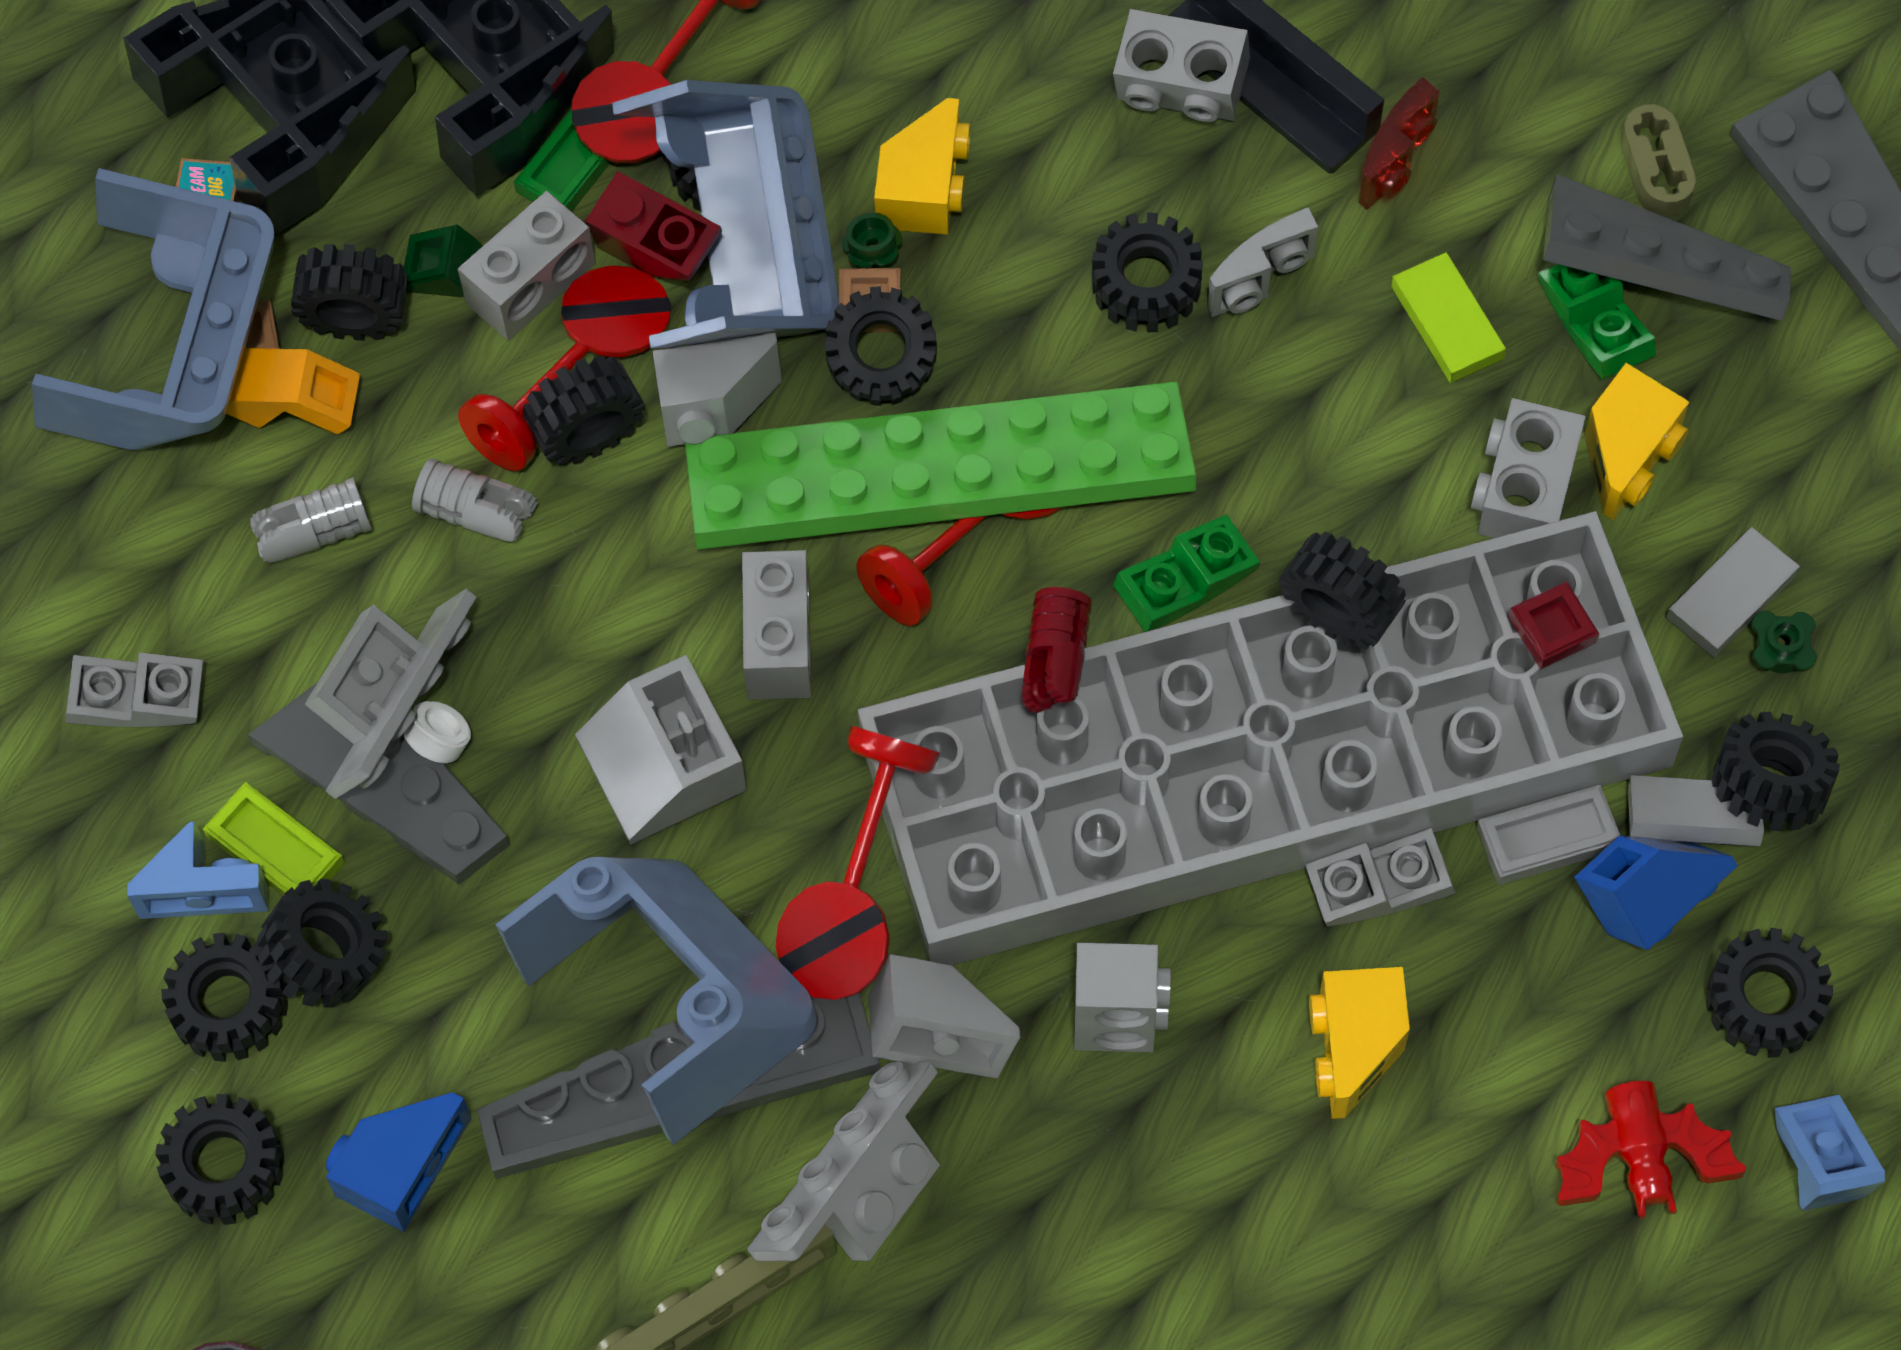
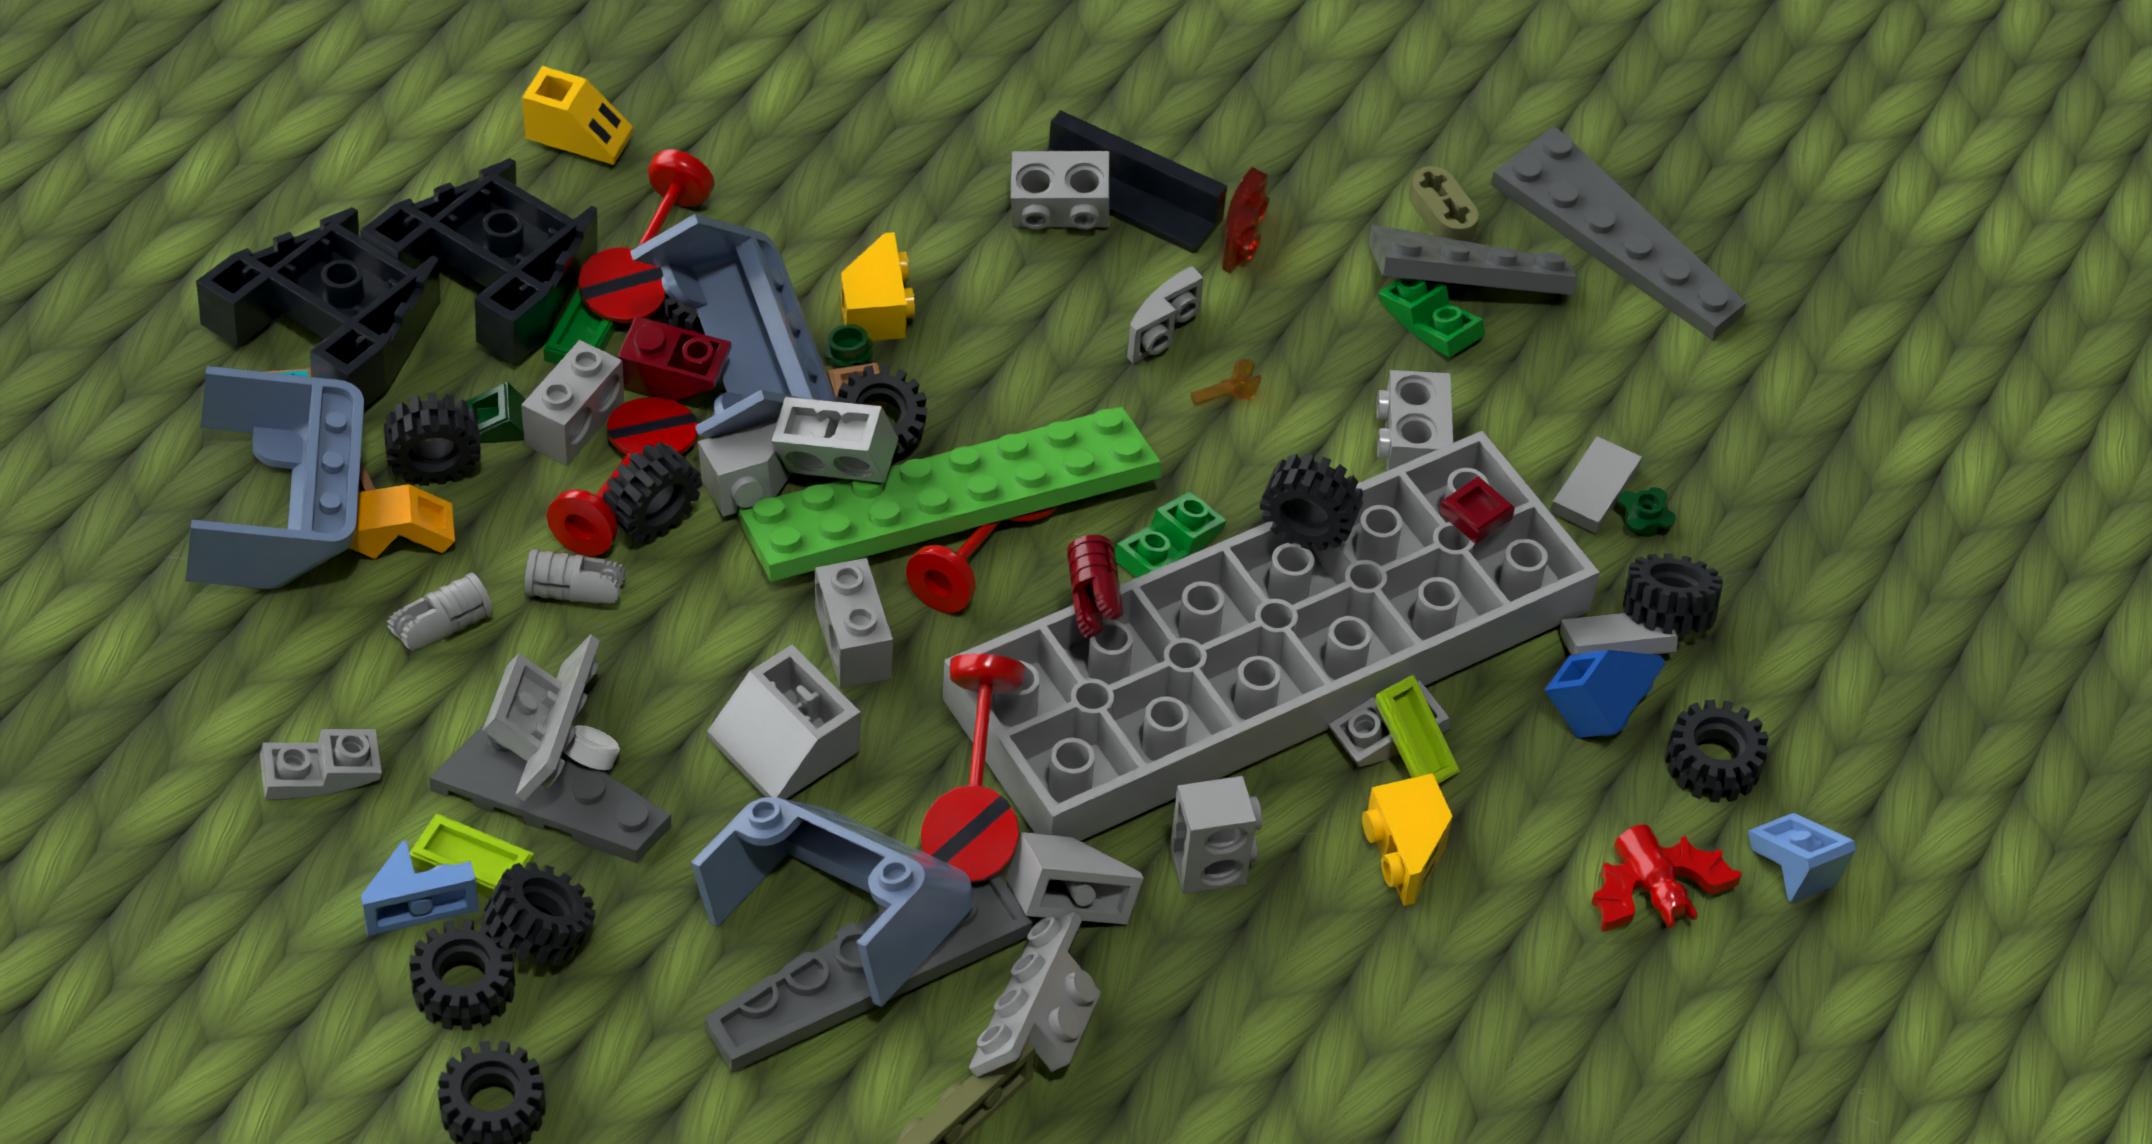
camera: 20 degrees left, 15 degrees down
(396, 1157) = (644, 1067): blue slope -> none
(808, 384) = (835, 439): none -> light grey brick
(1154, 242) = (1075, 315): black tyre -> none
(1325, 372) = (1239, 385): none -> clear orange hand
(1403, 903) = (1415, 730): none -> lime tile
(1448, 317) = (1318, 333): lime tile -> none
(1547, 834) = (1508, 674): light grey tile -> none
(1629, 433) = (1485, 384): yellow slope -> none

